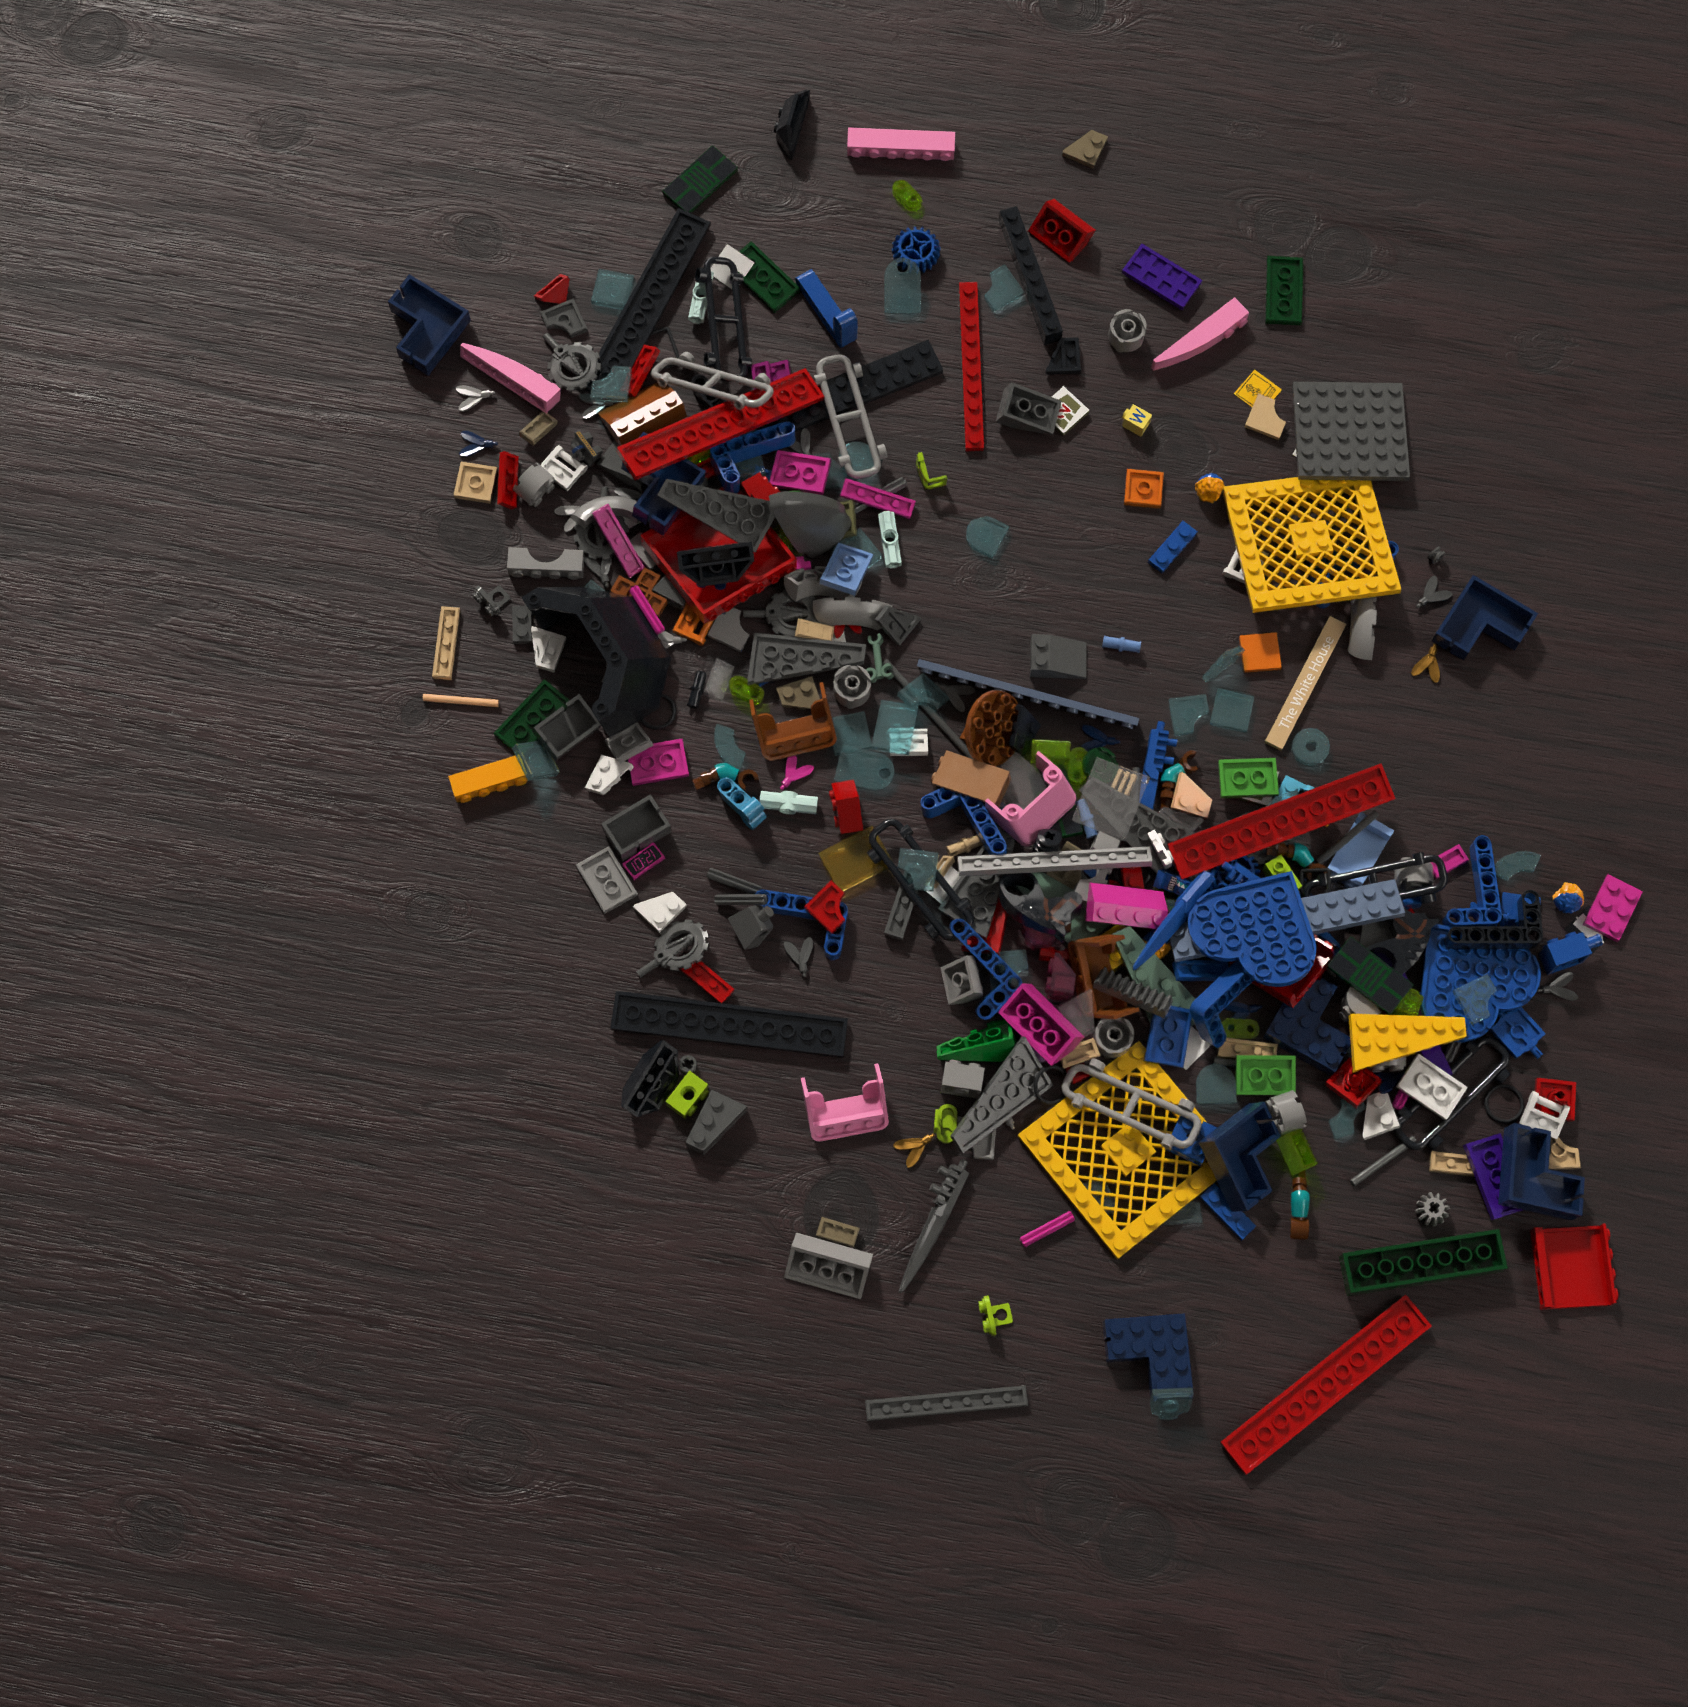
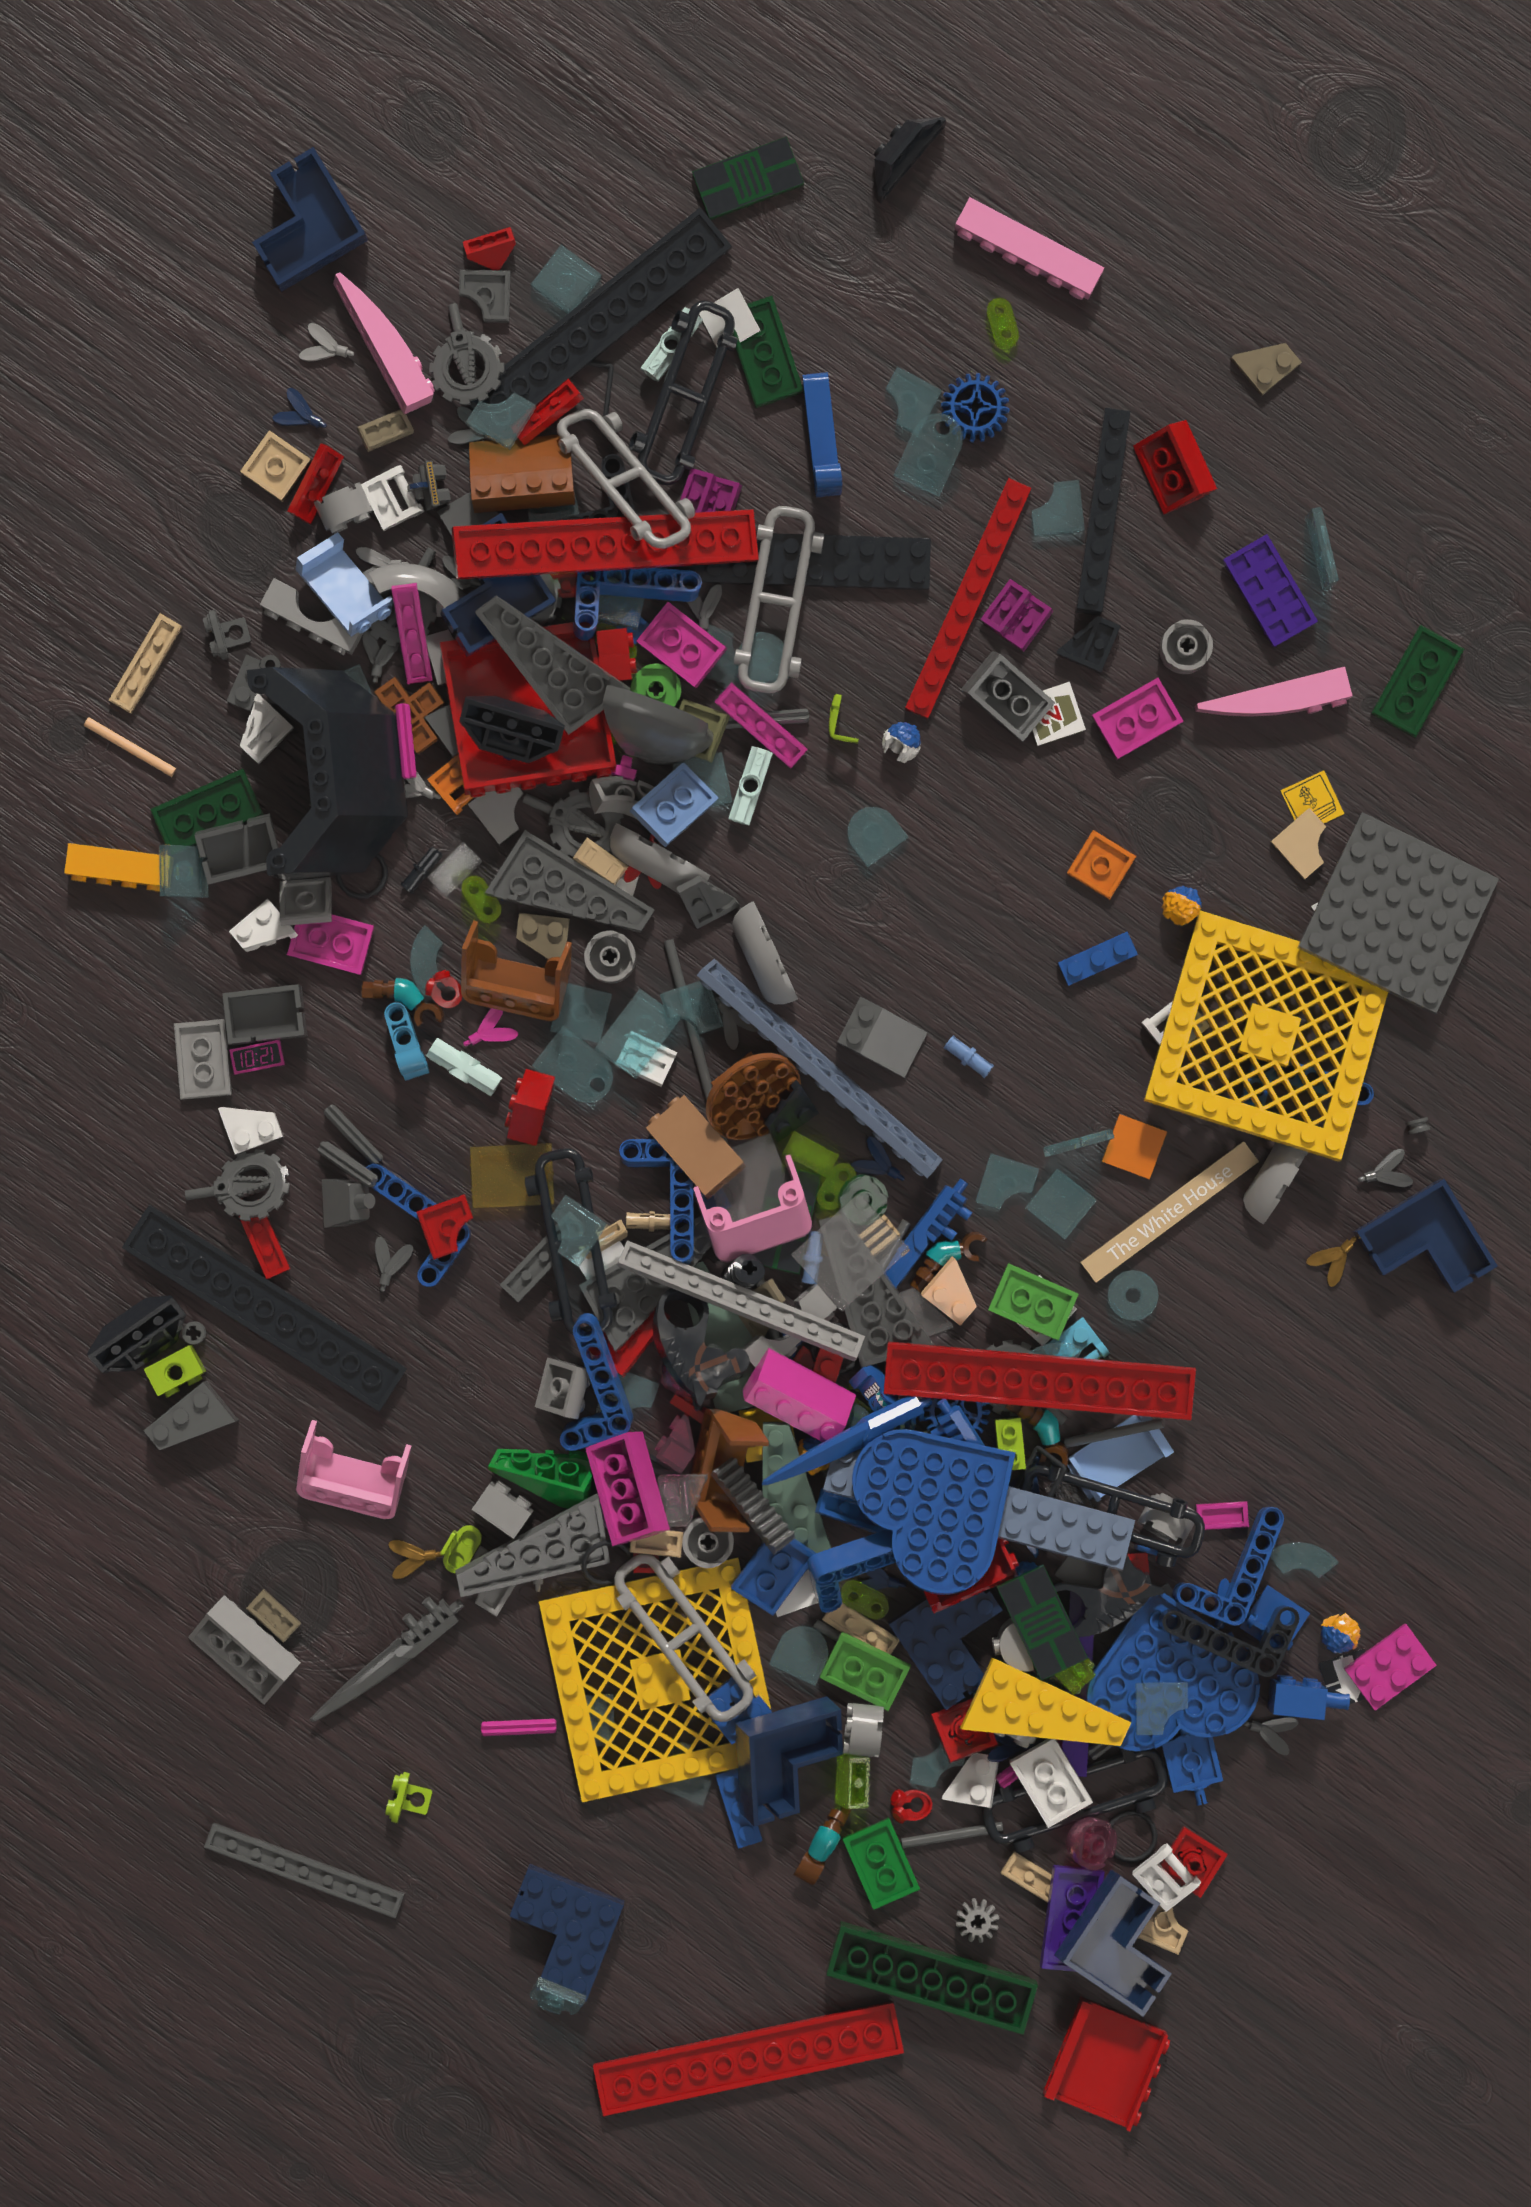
camera: 25 degrees right, 15 degrees up
(556, 533) = (342, 586): none -> light blue panel
(741, 761) = (433, 991): none -> red piece
(871, 262) = (913, 397): none -> clear light blue tile
(879, 671) = (656, 951): sand green bar -> none
(953, 640) = (762, 956): none -> light grey brick
(975, 467) = (903, 740): none -> piece
(1008, 362) = (1016, 615): none -> magenta slope
(1119, 388) = (1137, 718): none -> dark pink plate
(1136, 420) = (1137, 771): light yellow brick -> none
(1157, 842) = (878, 1355): white wing -> none
(1181, 234) = (1321, 548): none -> clear light blue tile
(1341, 1162) = (900, 1797): none -> red piece
(1345, 1202) = (881, 1863): none -> green plate
(1480, 1116) = (1091, 1842): none -> clear pink cylinder

